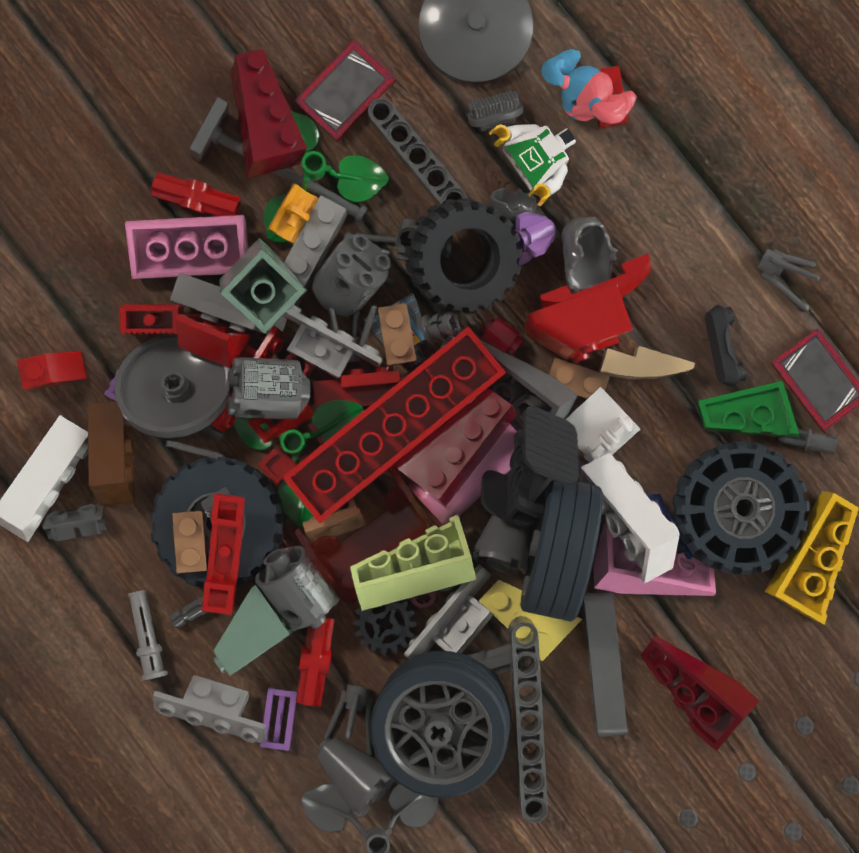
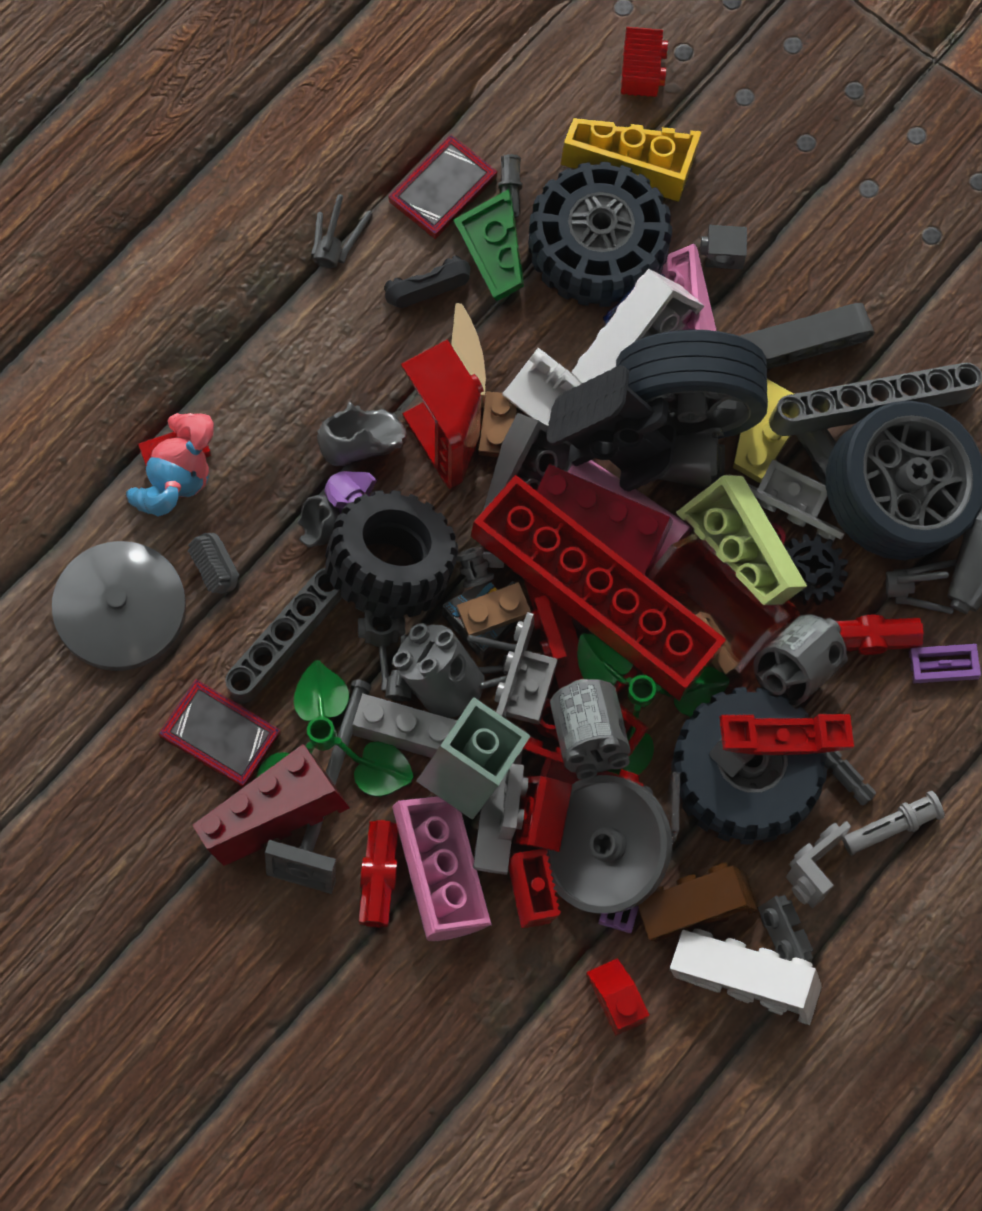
camera: 105 degrees left, 15 degrees down
(126, 552) = (807, 879): none -> light grey bracket
(190, 542) = (780, 778): medium nougat plate -> none
(212, 706) = (951, 732): light grey bracket -> none
(250, 633) = (872, 700): sand green slope -> none
(277, 464) = (665, 721): red tile -> none
(293, 214) = (379, 751): light orange hips -> none
(501, 335) = (467, 507): dark red brick -> none
(536, 156) = (260, 506): torso -> none
(631, 276) = (415, 447): red slope -> none
(708, 621) = (724, 247): none -> dark grey brick
(708, 696) = (804, 232): dark red wedge -> none

